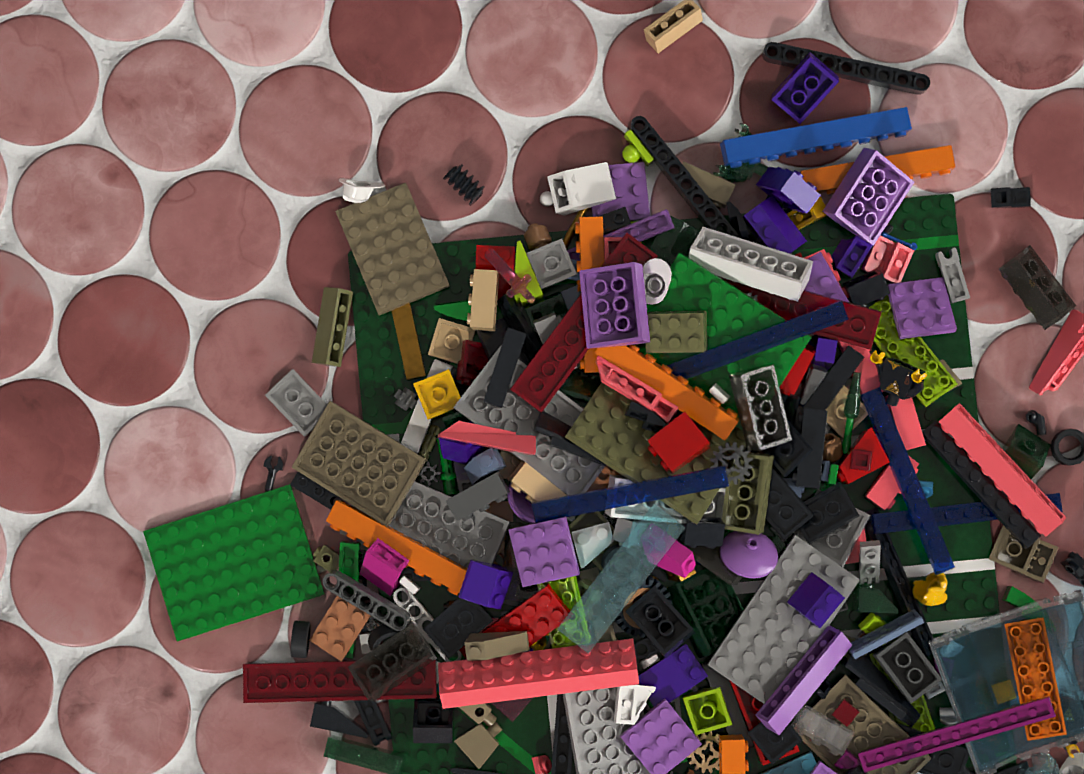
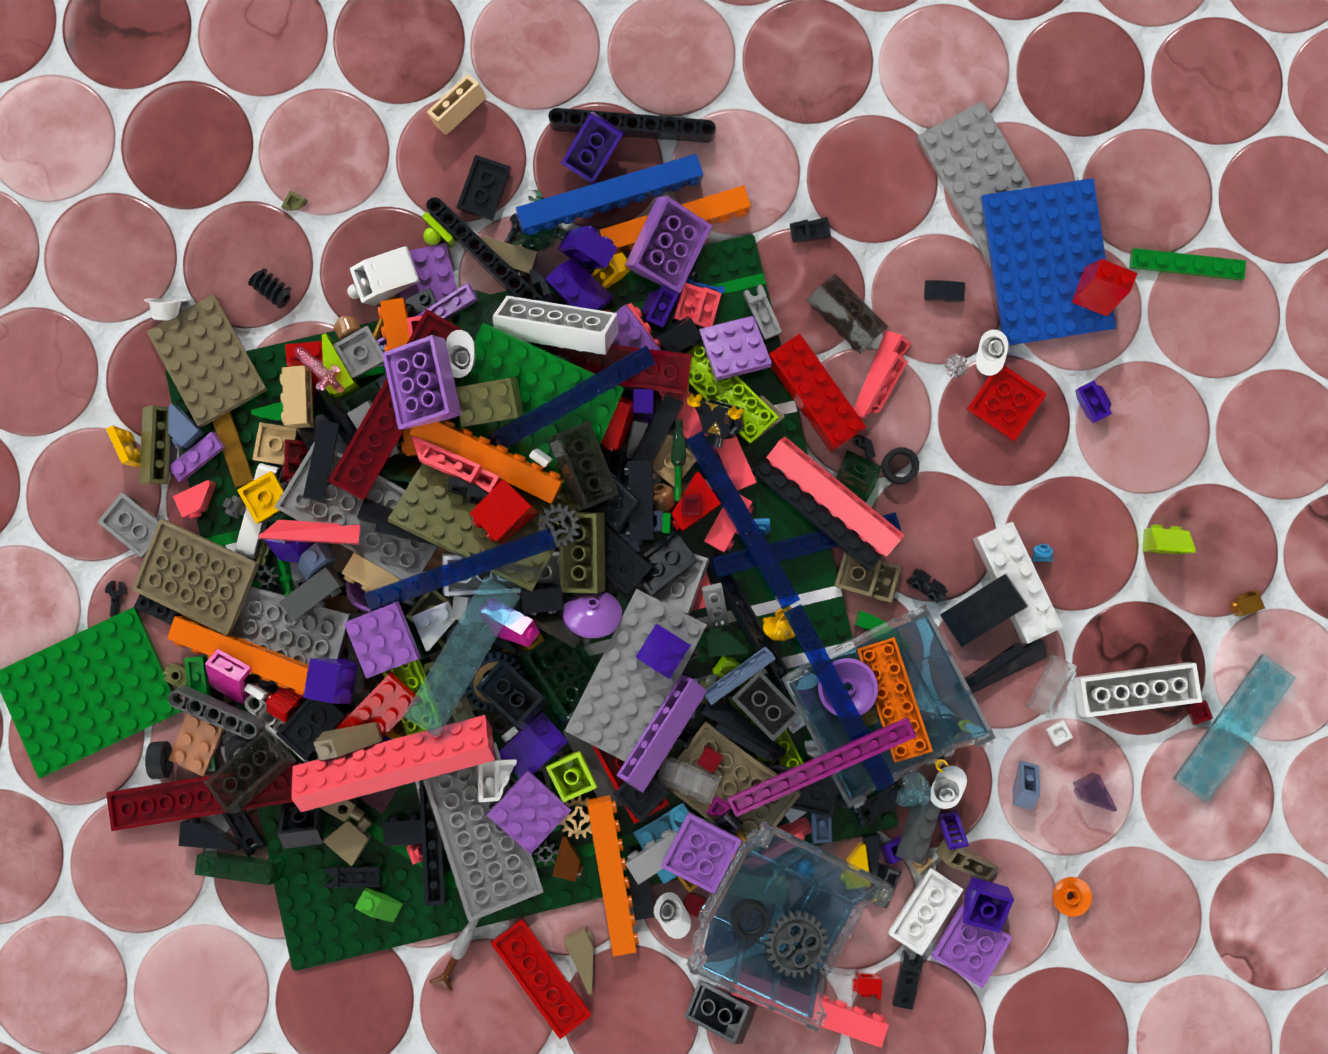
camera: 10 degrees left, 0 degrees up
(302, 317) = (124, 445): none -> yellow plate
(362, 314) = (182, 428): none -> sand blue slope
(365, 387) = (195, 500): none -> coral slope
(372, 344) = (197, 457): none -> medium lavender plate
(434, 600) = (284, 703): none -> red brick
(496, 99) = (293, 202): none -> olive tile
(533, 741) = (402, 830): none -> black brick
(689, 111) = (484, 187): none -> black plate
(714, 157) = (515, 229): none -> black bar
(979, 662) = (836, 691): none -> clear blue plate
(995, 363) = (815, 392): none -> red brick
(1003, 669) = (863, 684): none -> medium lavender dish

